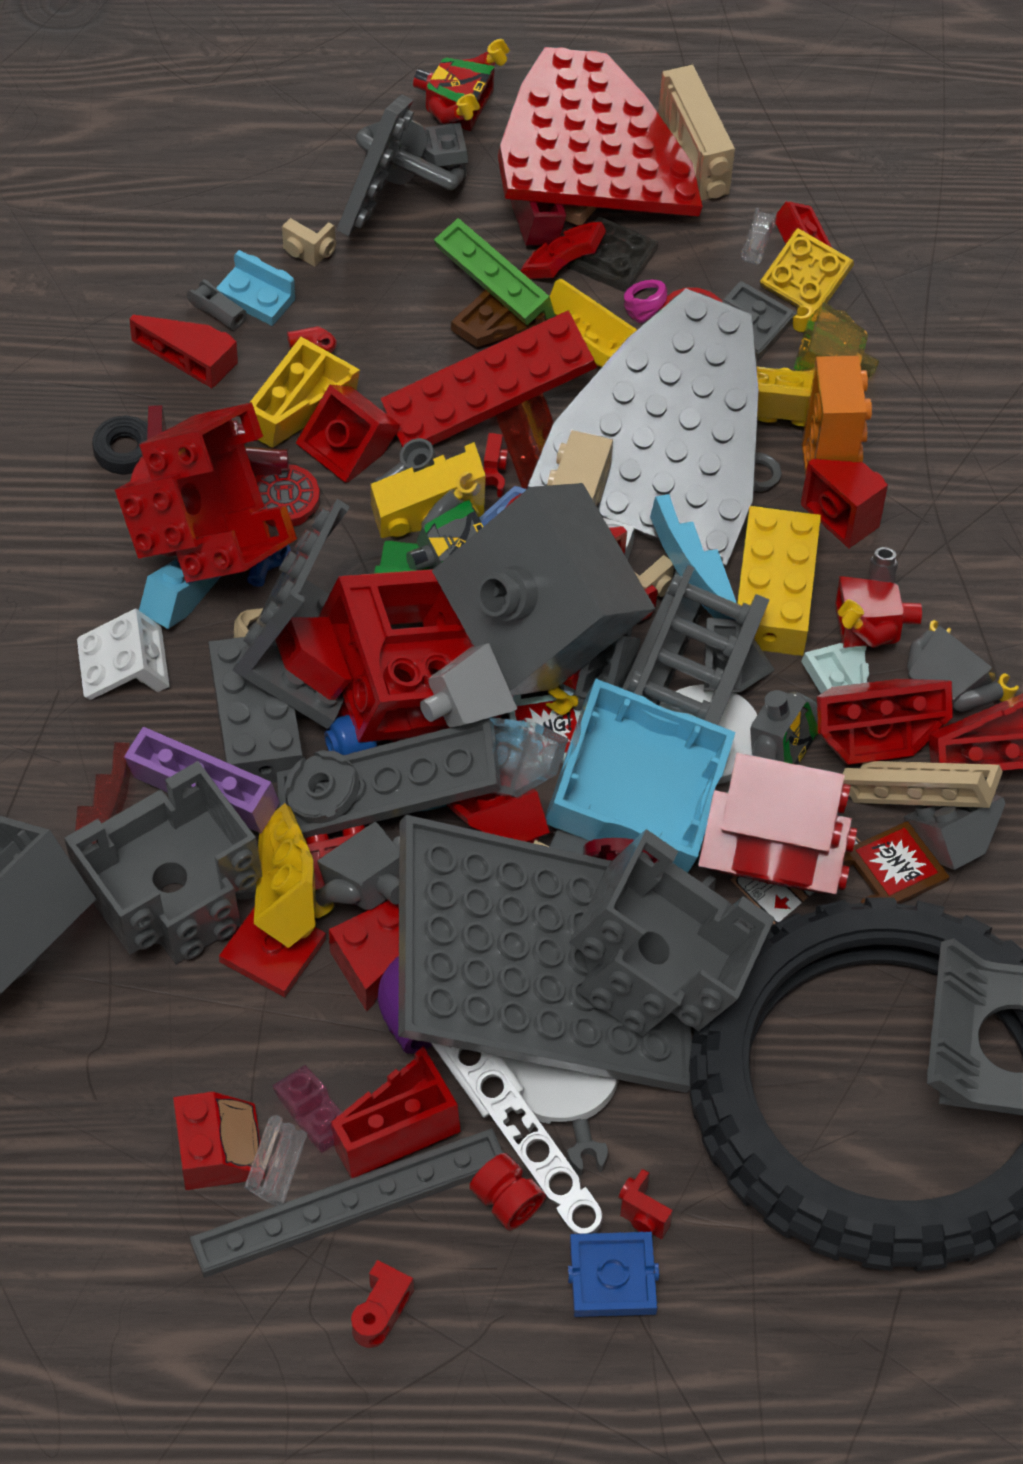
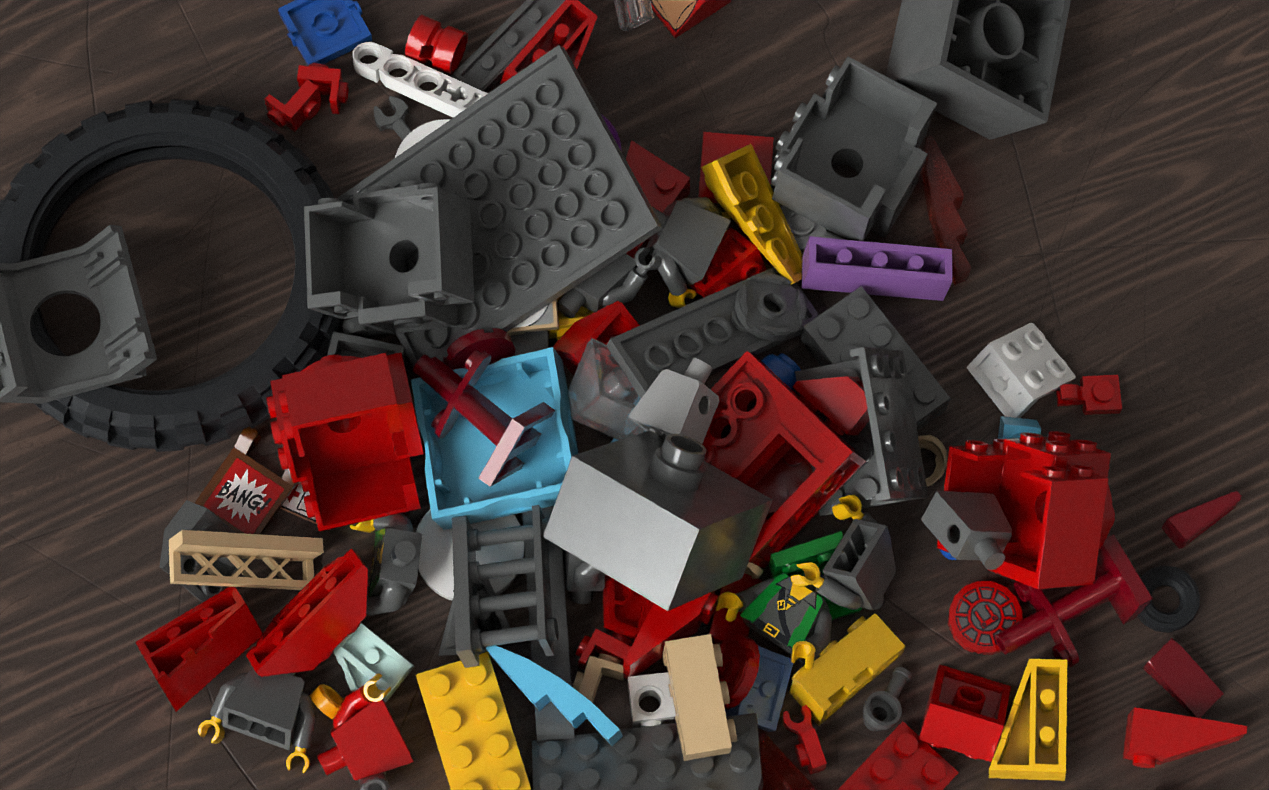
camera: 155 degrees right, 15 degrees up
(50, 481) = (1191, 523): none -> dark red slope
(70, 614) = (1096, 394): none -> red plate
(151, 386) = (1183, 679): none -> dark red slope
(265, 508) = (969, 526): none -> dark grey torso
(309, 1105) = (625, 52): clear pink slope -> none
(380, 541) = (860, 564): none -> dark grey torso
(632, 739) = (509, 434): none -> dark red piece
(686, 1192) = (301, 106): none -> red bracket
(892, 660) = (326, 700): none -> light orange tile

